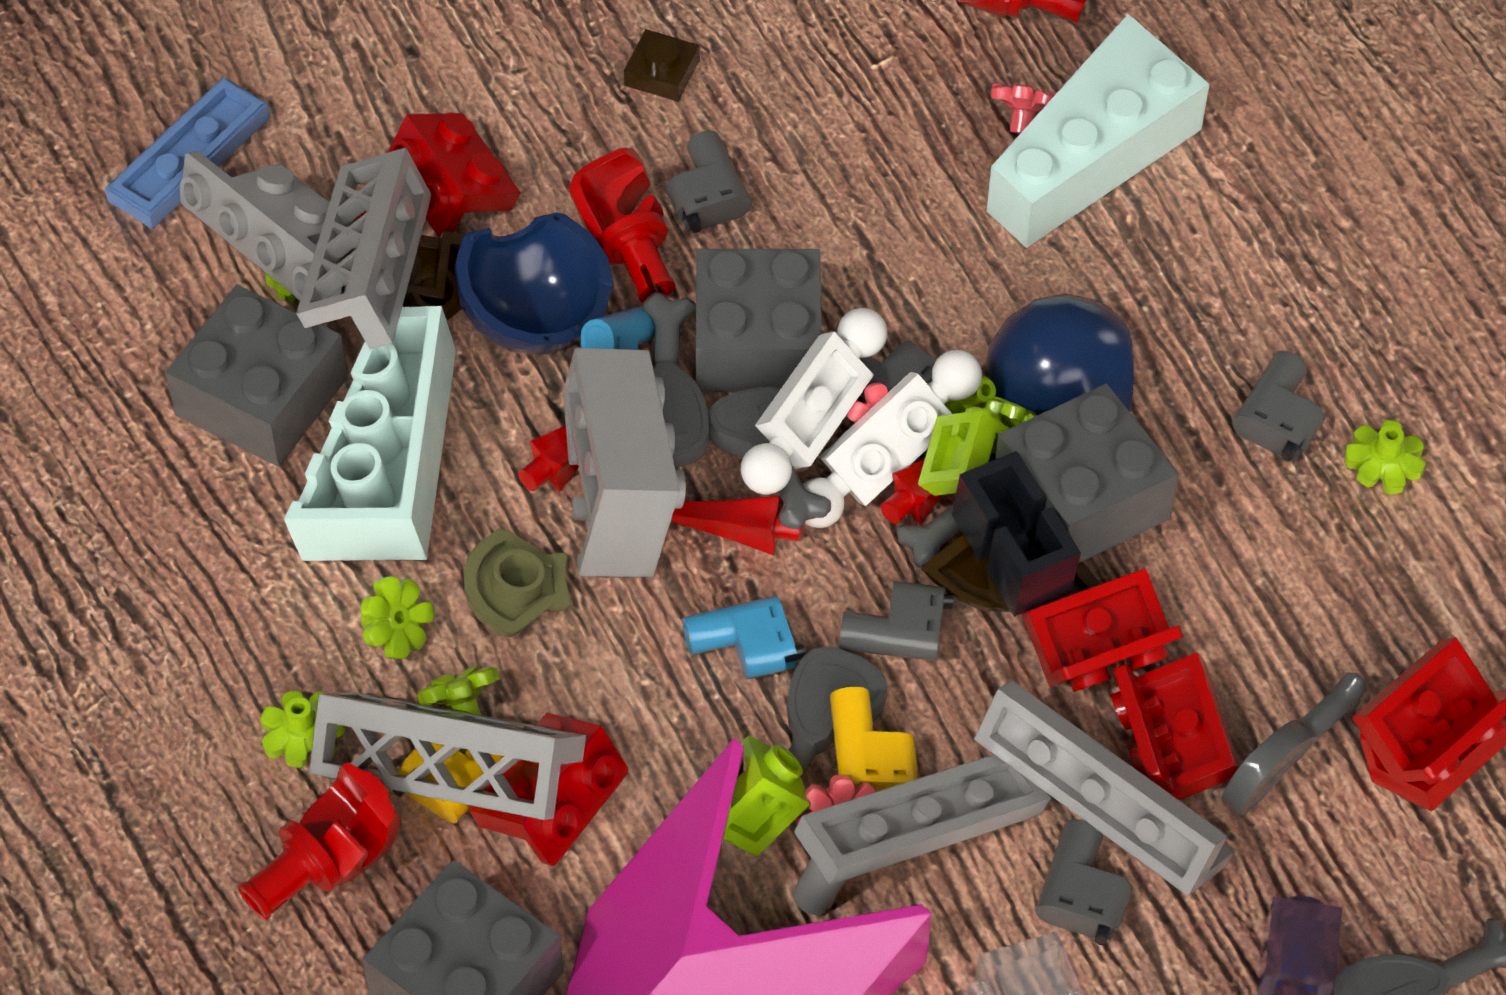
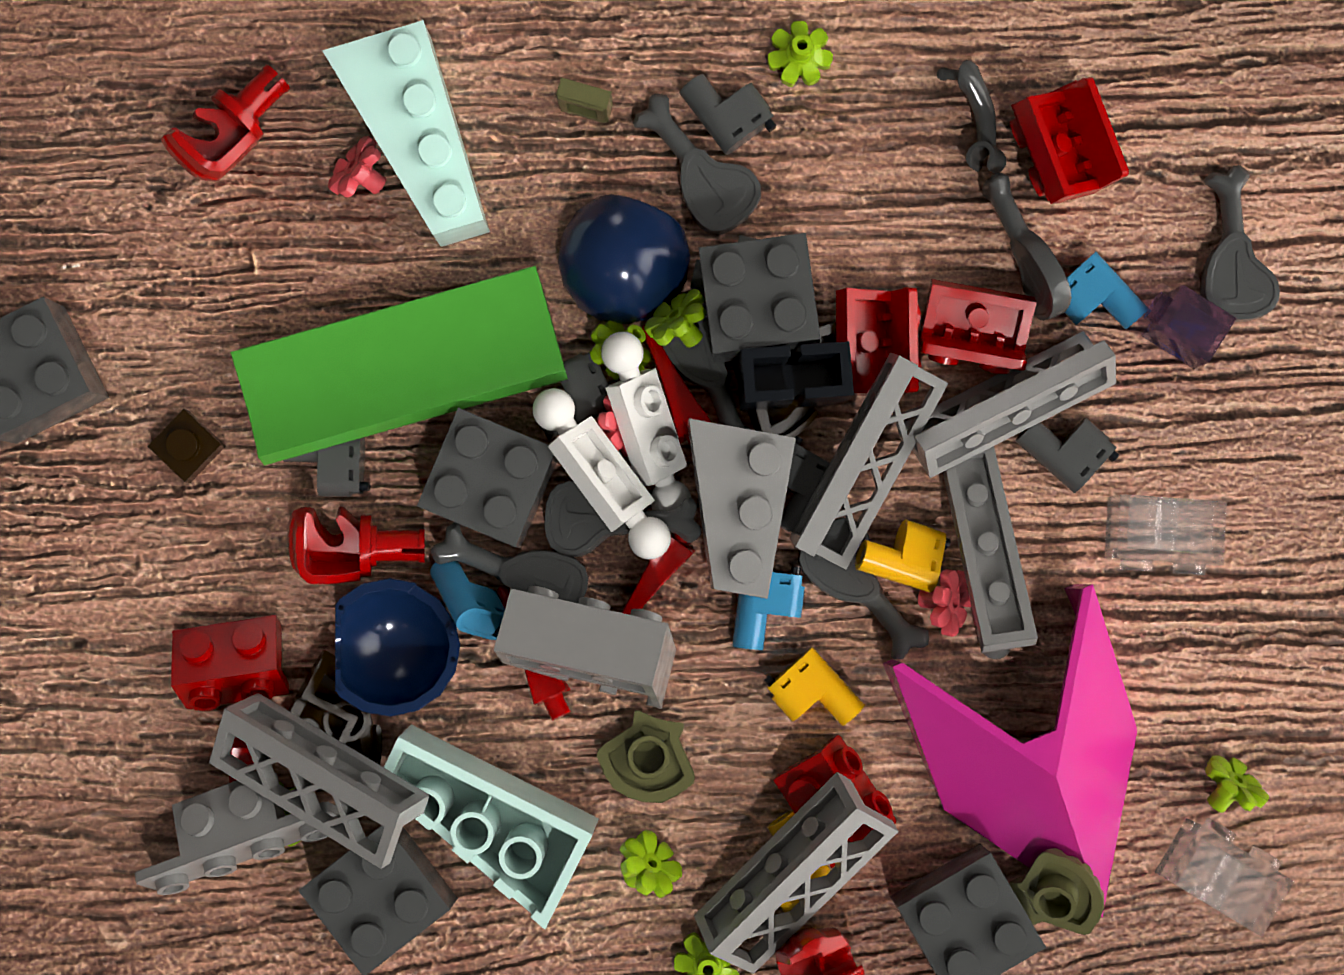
camera: 65 degrees left, 30 degrees up
(212, 126) = (109, 864): medium blue tile -> none
(459, 692) = (730, 839): lime plant -> none
(675, 711) = (813, 680): none -> yellow piece
(765, 796) = (920, 646): lime bracket -> none
(846, 538) = (741, 502): none -> light grey wedge
(848, 198) = (399, 365): none -> bright green arch
(957, 446) = (694, 379): lime bracket -> none
(964, 625) = (852, 457): none -> light grey fence
(1188, 419) = (713, 191): none -> dark grey piece
(1213, 268) = (584, 100): none -> olive tile
(1287, 838) = (1099, 284): none -> dark azure piece
(1380, 668) = (974, 87): none -> dark grey piece

